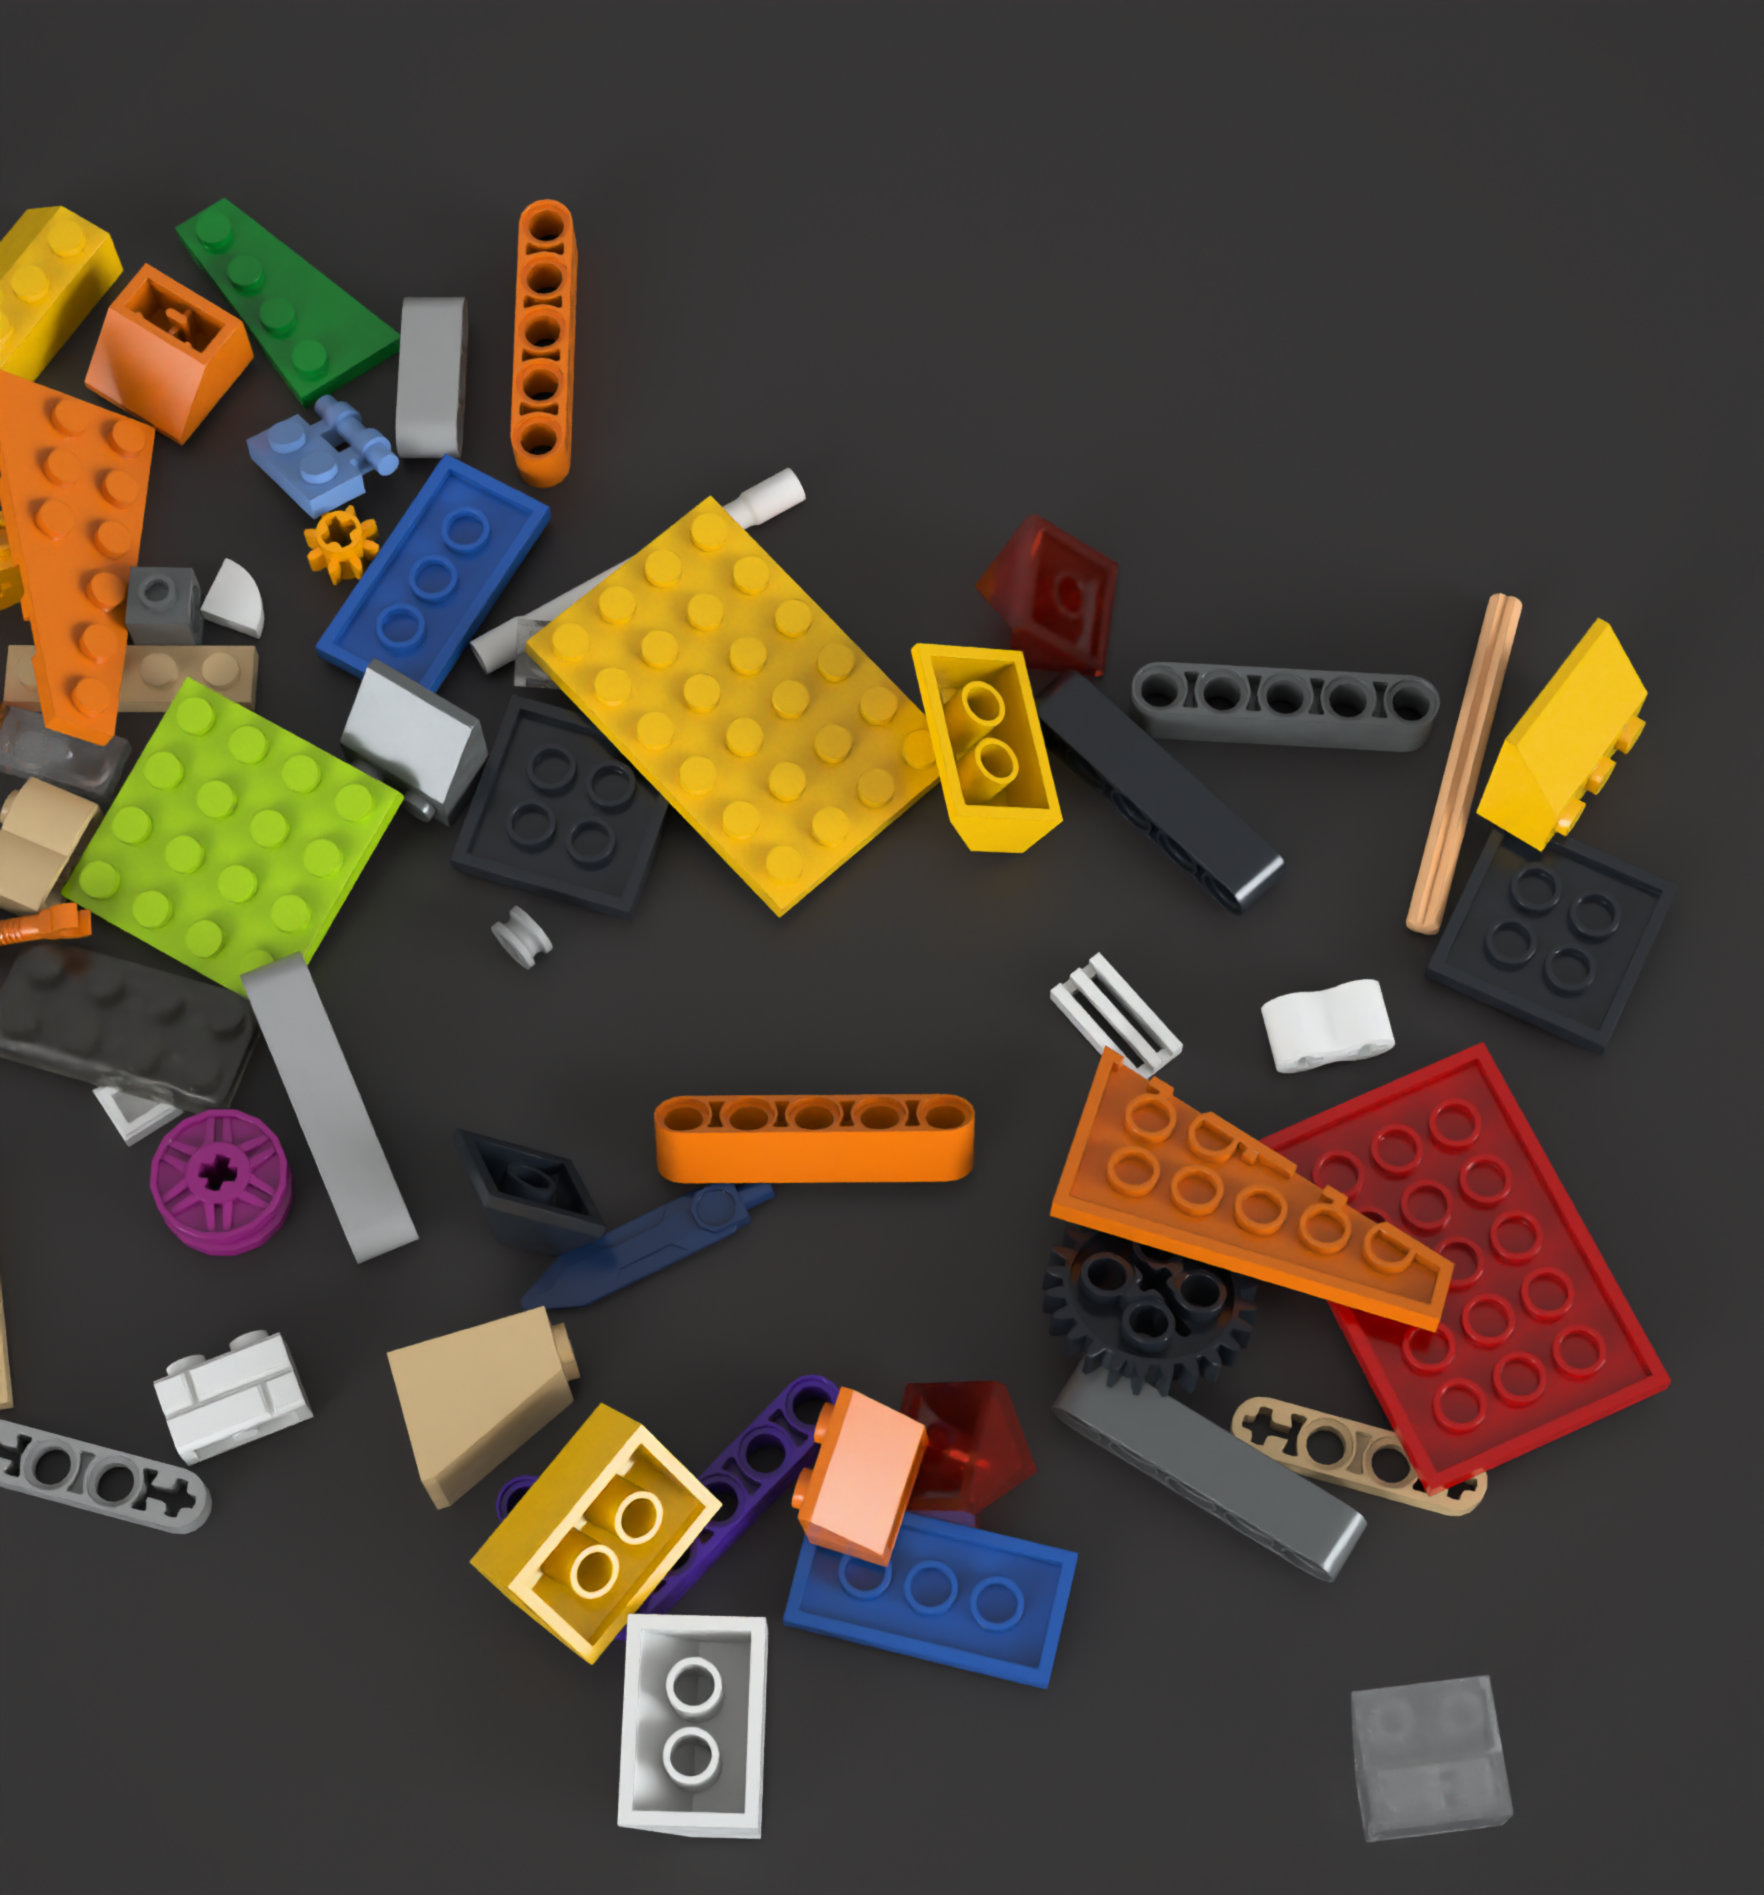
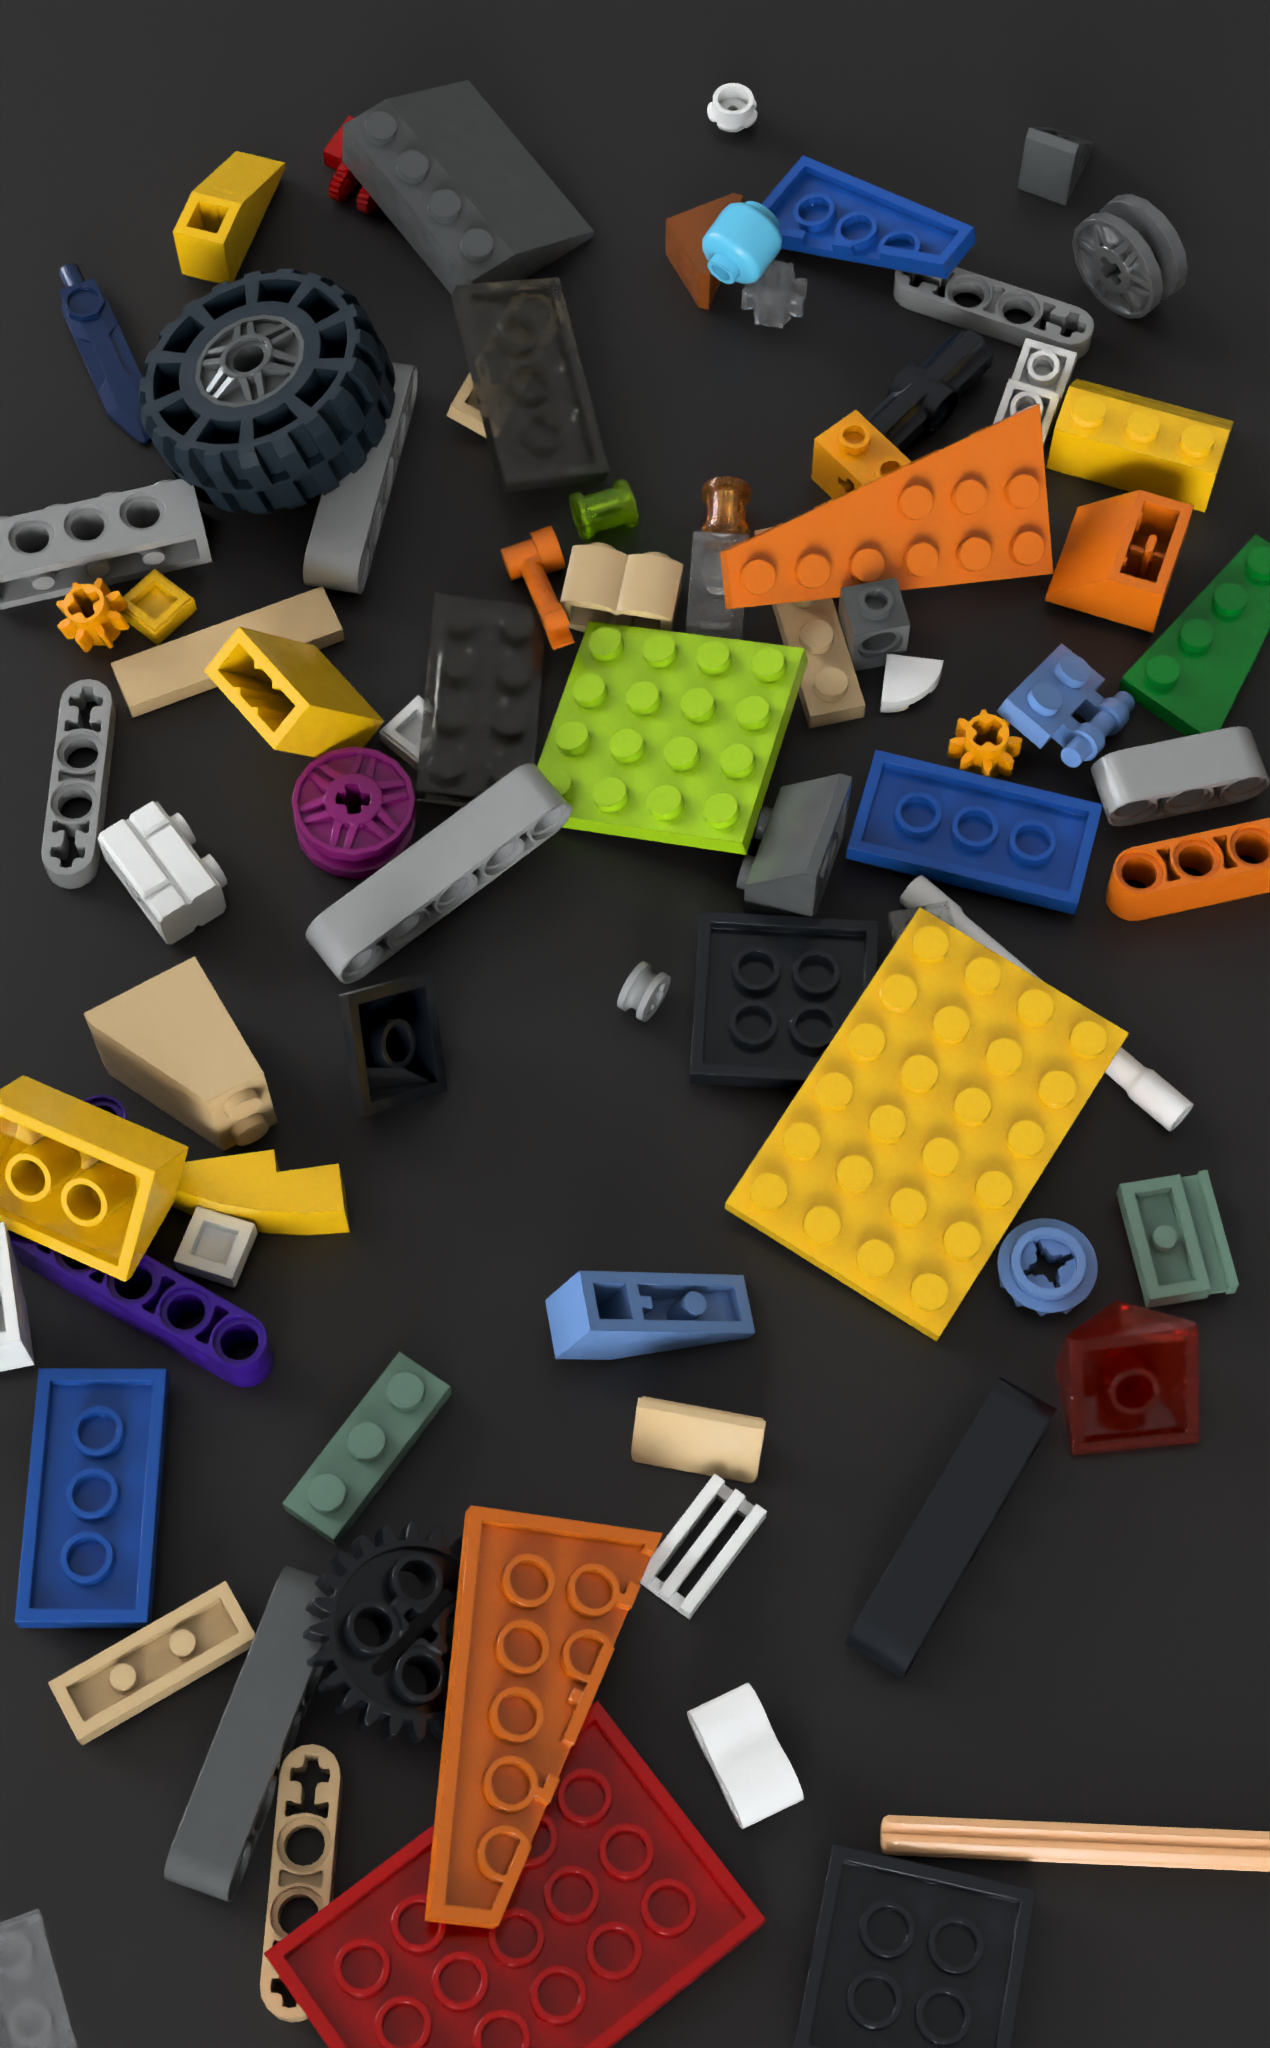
camera: 75 degrees right, 5 degrees down
(76, 1205) = (292, 694): none -> yellow brick
(646, 1245) = (381, 1176): dark blue piece -> none
(647, 1363) = (258, 1192): none -> yellow slope
(690, 1420) = (215, 1246): none -> white plate
(815, 1138) = (505, 1290): orange beam -> none
(860, 1477) = (161, 1389): slope -> none
(874, 1008) = (645, 1313): none -> medium blue slope
(892, 629) = (1057, 1243): none -> medium blue gear
(919, 521) = (1177, 1239): none -> sand green plate
(939, 1308) = (367, 1448): none -> sand green plate
(971, 1451) = (218, 1485): clear red slope -> none
(987, 745) = (938, 1337): yellow slope -> none
(1013, 998) = (697, 1439): none -> tan slope
(1117, 1557) = (153, 1663): none -> tan plate
(1308, 690) = (1079, 1667): dark grey beam -> none
(1566, 741) = (1123, 1936): yellow slope -> none

